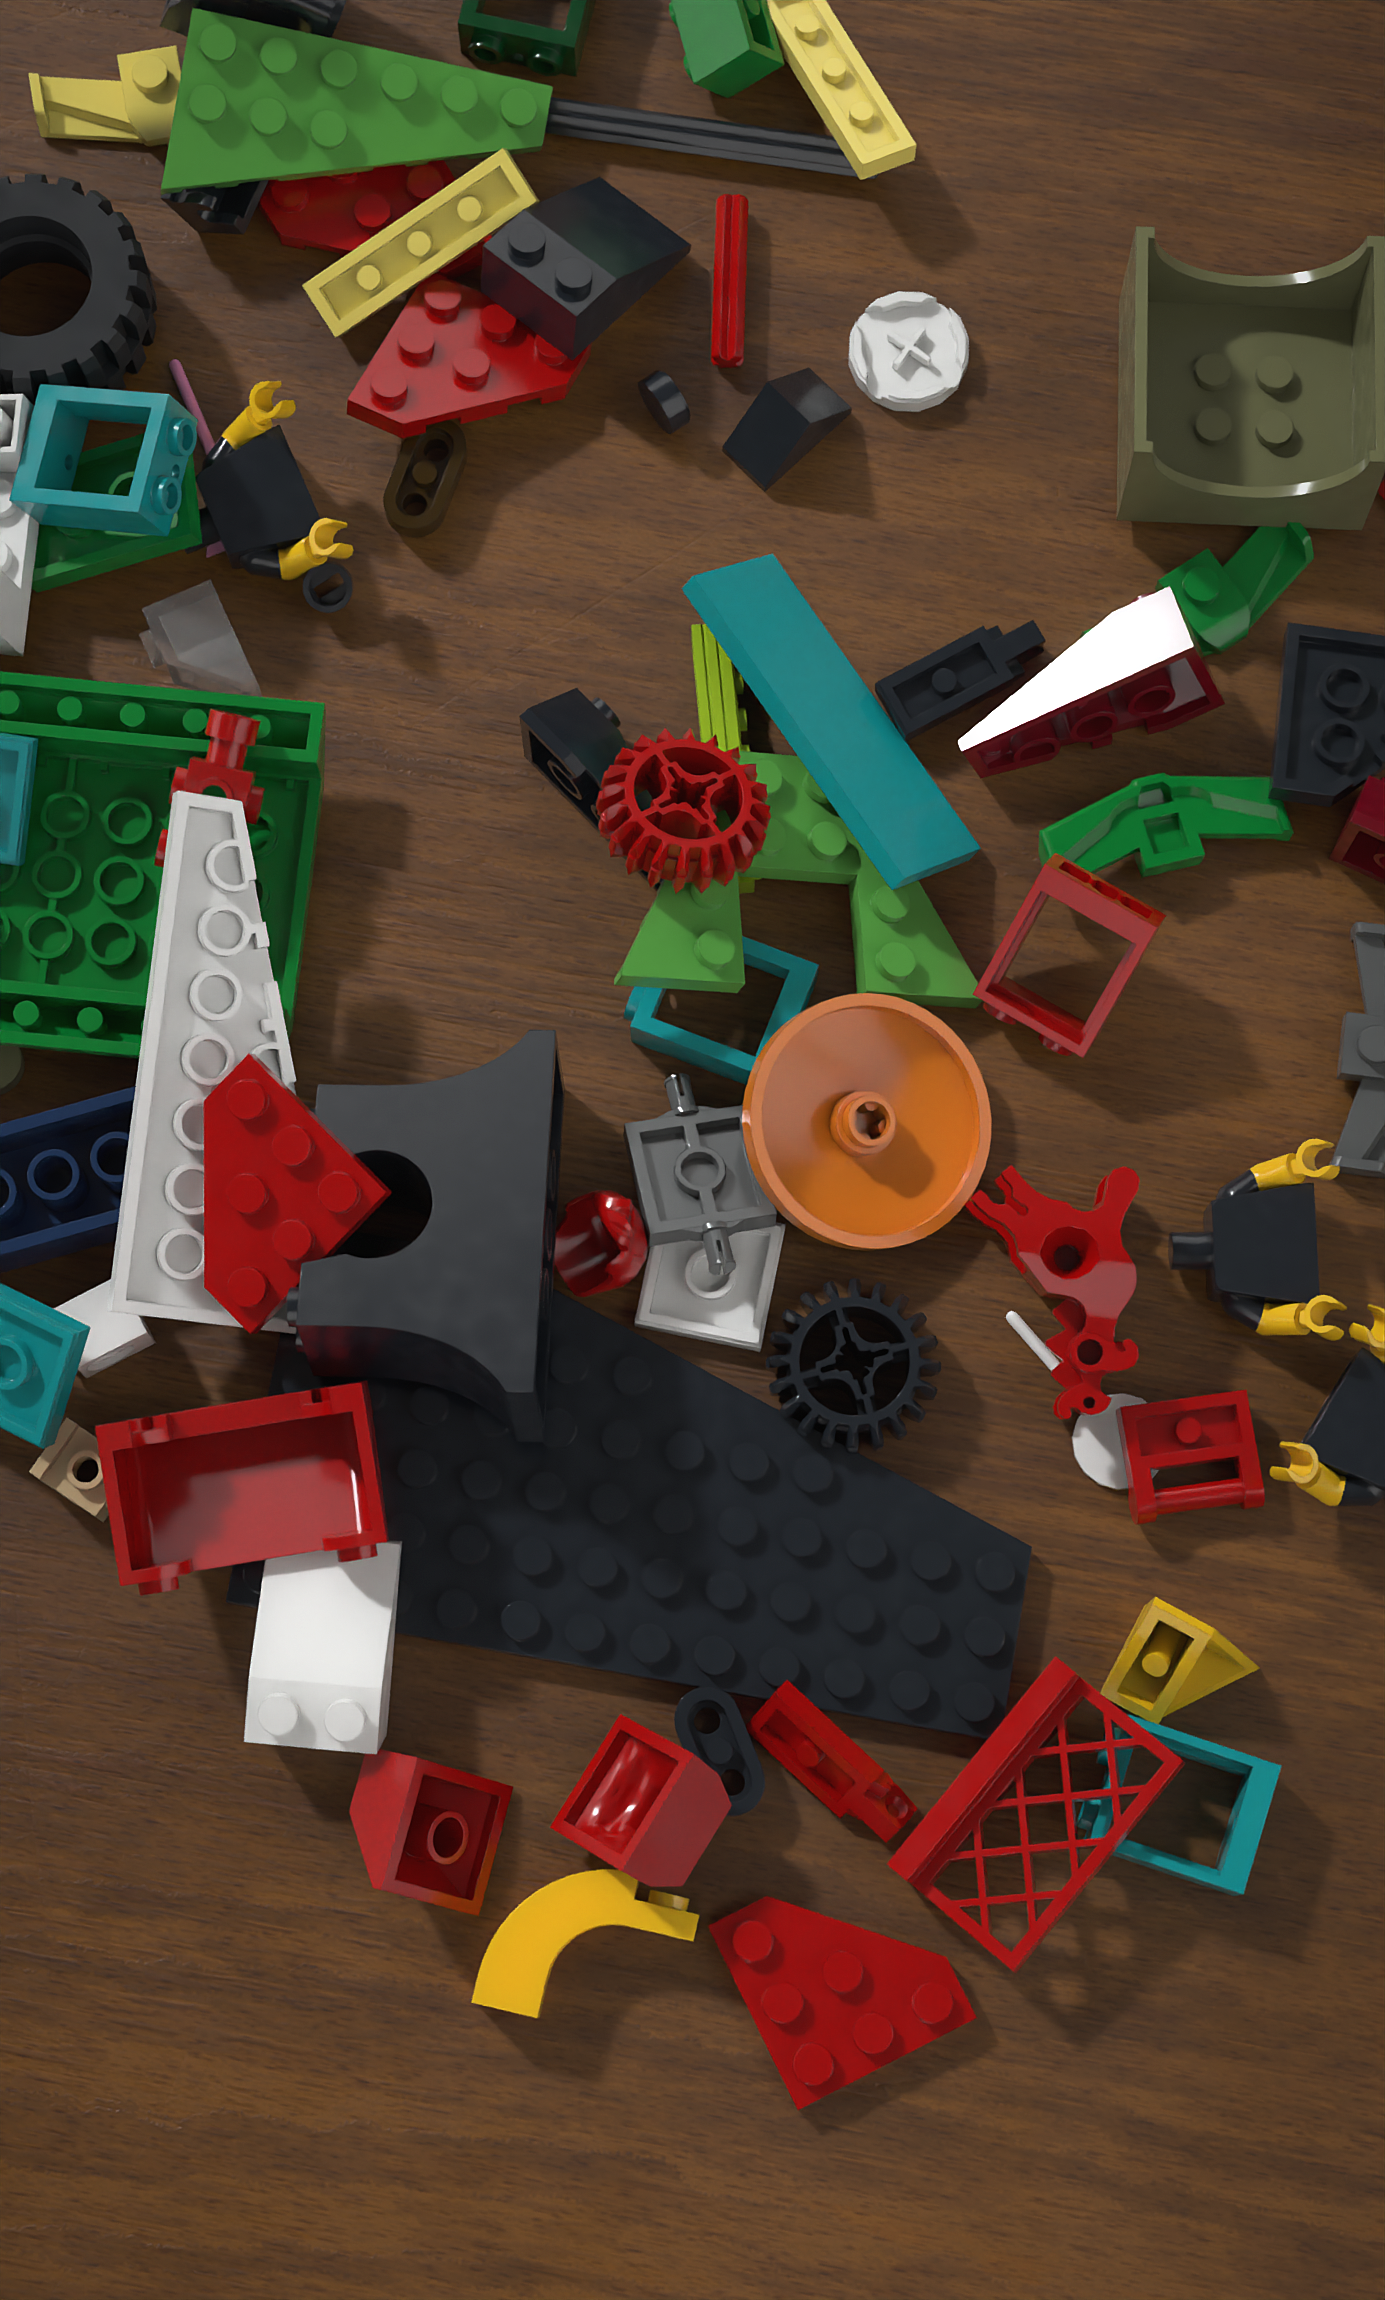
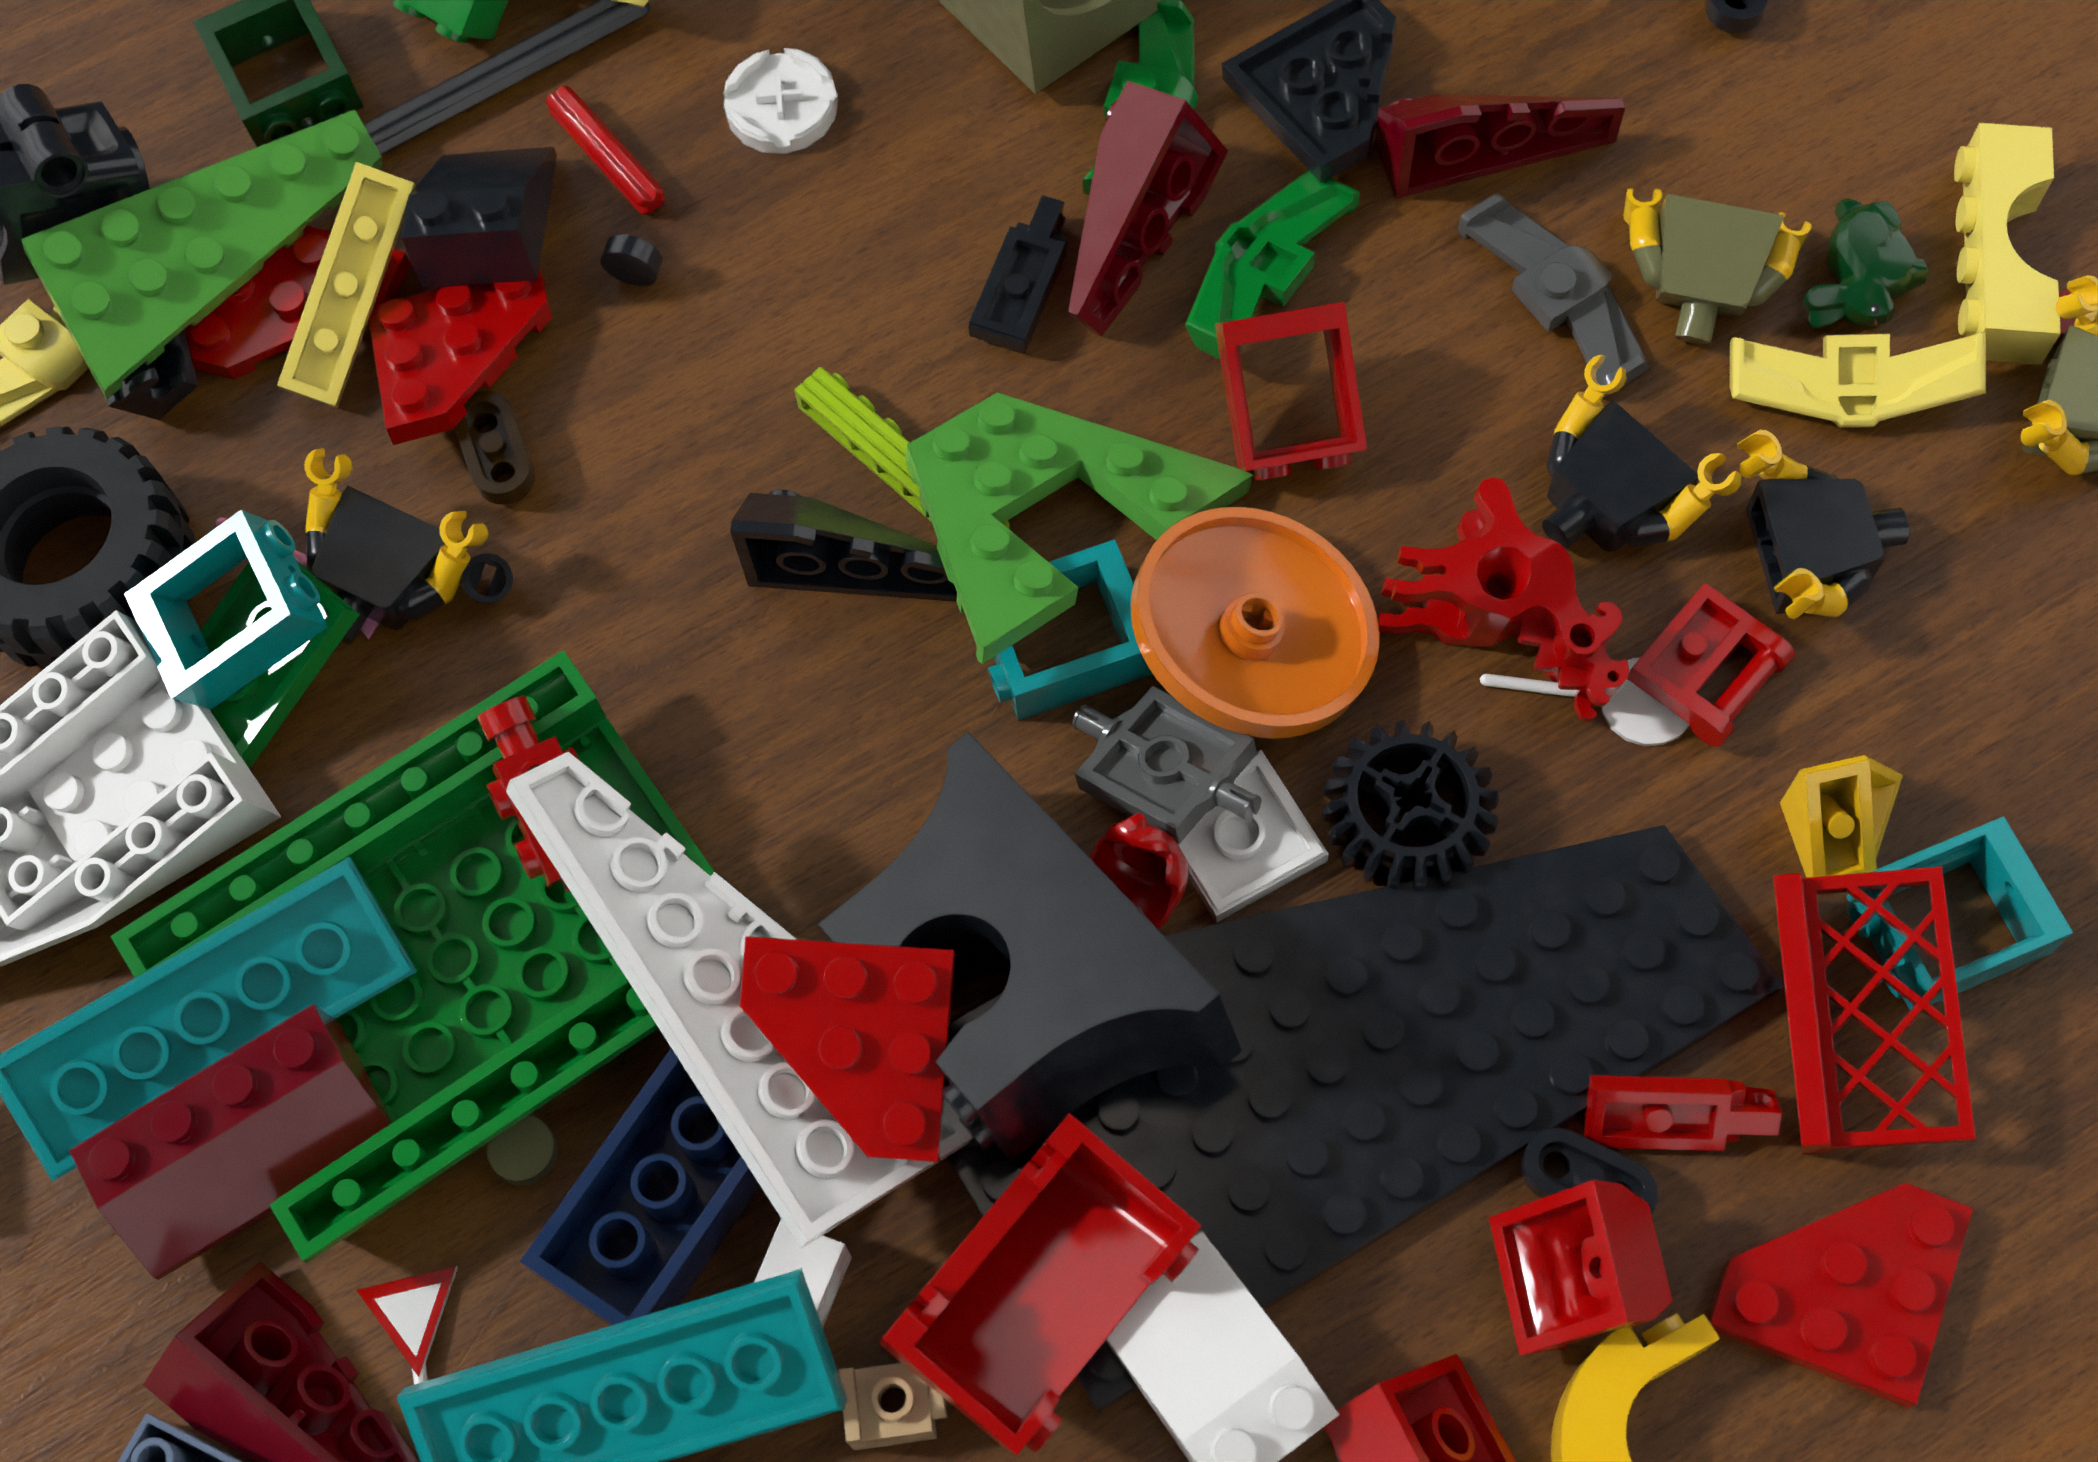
camera: 35 degrees left, 10 degrees down
(197, 643) = (415, 694): clear slope -> none
(678, 832) = (919, 497): red gear -> none
(784, 425) = (735, 215): black slope -> none
(831, 720) = (960, 371): teal tile -> none

